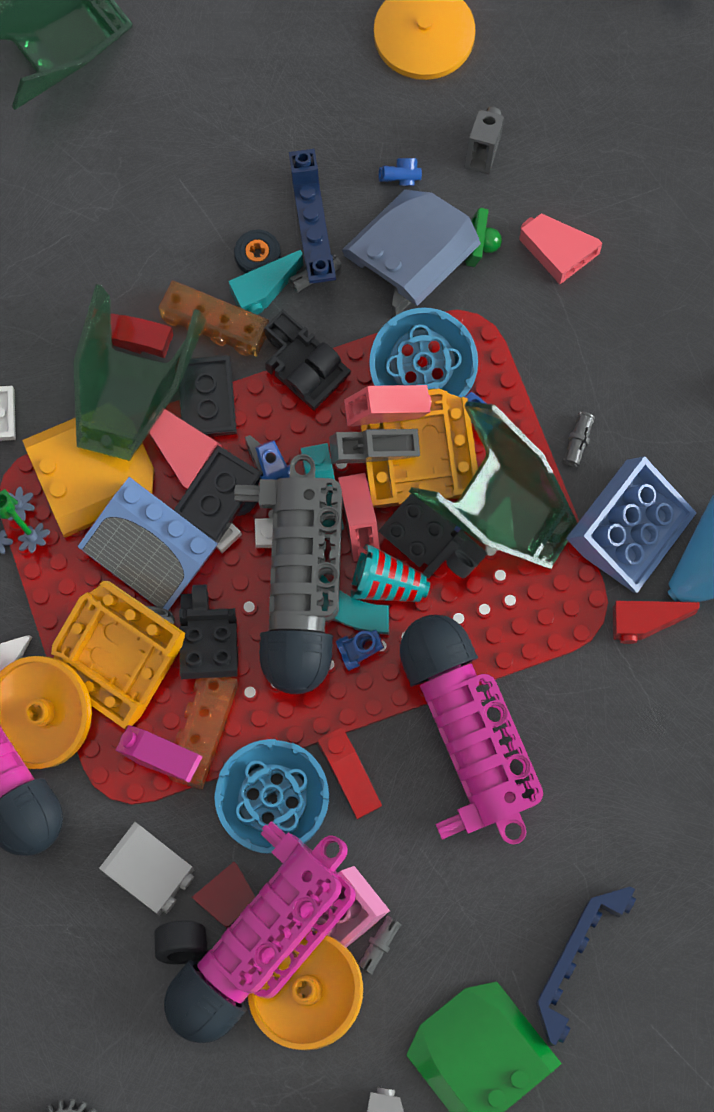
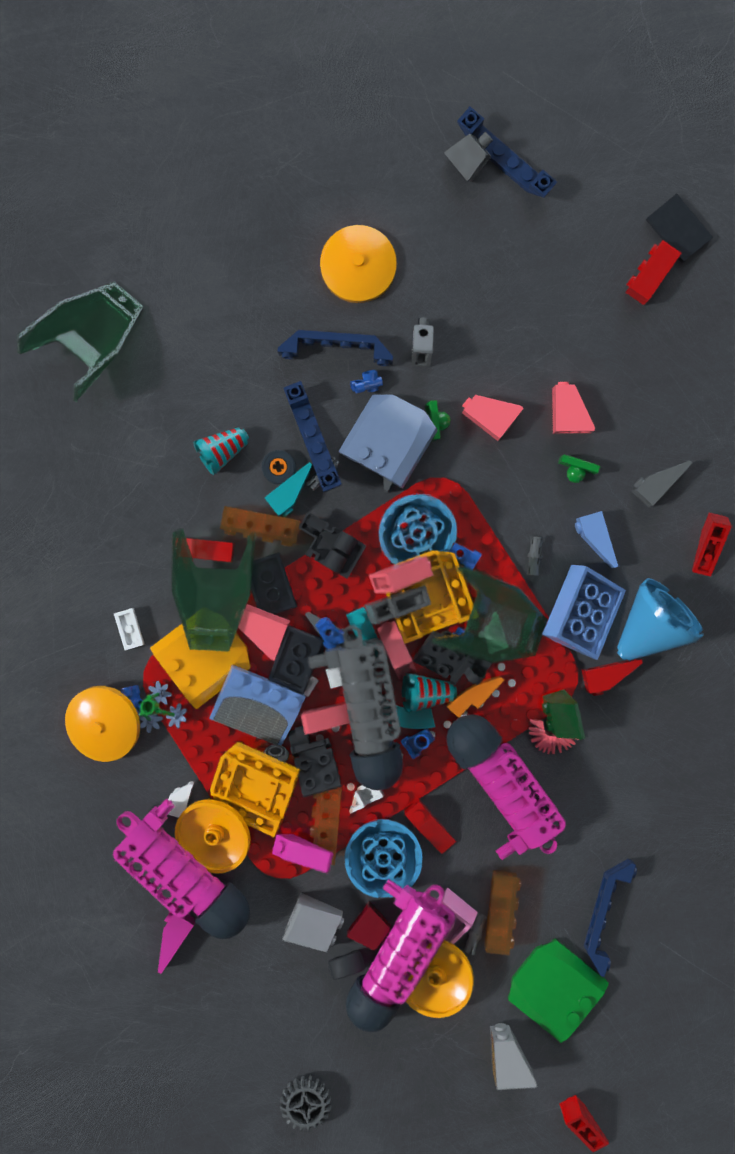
camera: 20 degrees left, 15 degrees up
(186, 210) = (220, 448): none -> teal cone
(237, 581) = (324, 717): none -> coral slope
(268, 706) = (363, 797): none -> white slope
(310, 109) = (290, 347): none -> dark blue slope
(424, 917) = (501, 912): none -> clear orange brick
(454, 599) = (474, 695): none -> orange slope
(549, 690) = (547, 739): none -> coral hair
(571, 653) = (563, 715): none -> dark green slope
(661, 336) = (577, 468): none -> green tile
(664, 265) = (569, 411): none -> coral slope
(668, 429) = (596, 535): none -> medium blue slope

